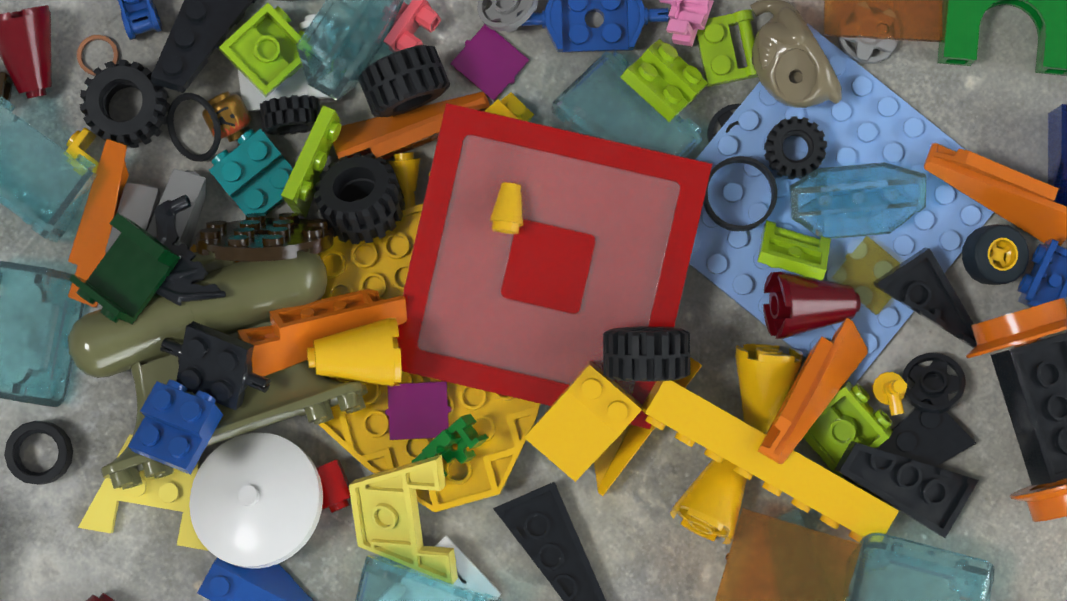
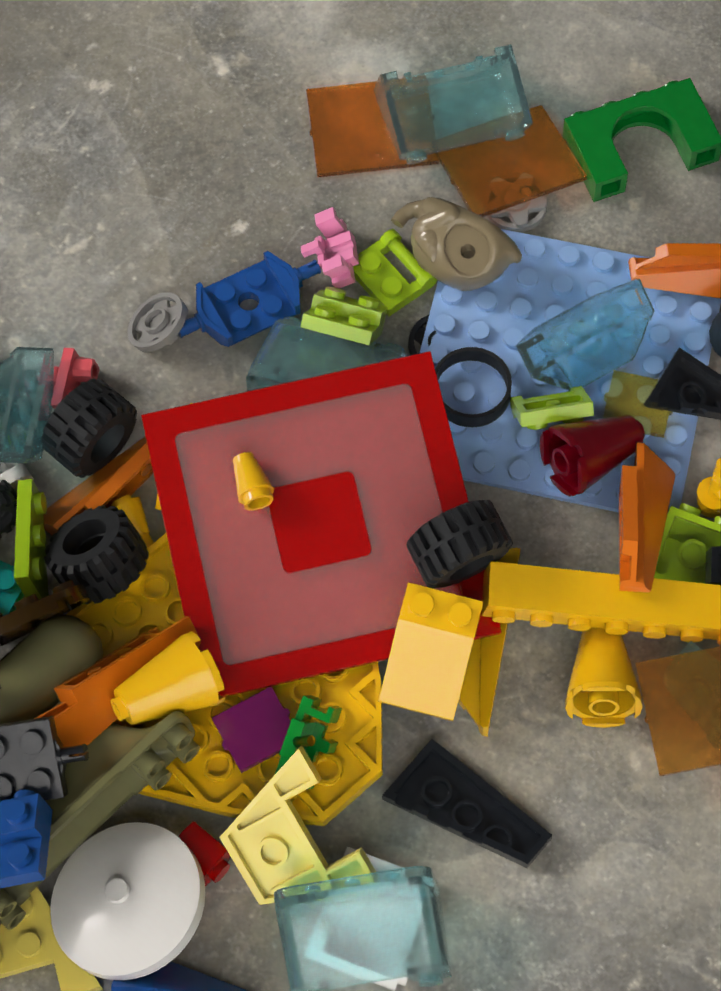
camera: 25 degrees left, 20 degrees down
(489, 62) = (165, 384): magenta piece -> none
(764, 381) = (589, 535): yellow cone -> none
(800, 128) = (501, 304): black tyre -> none

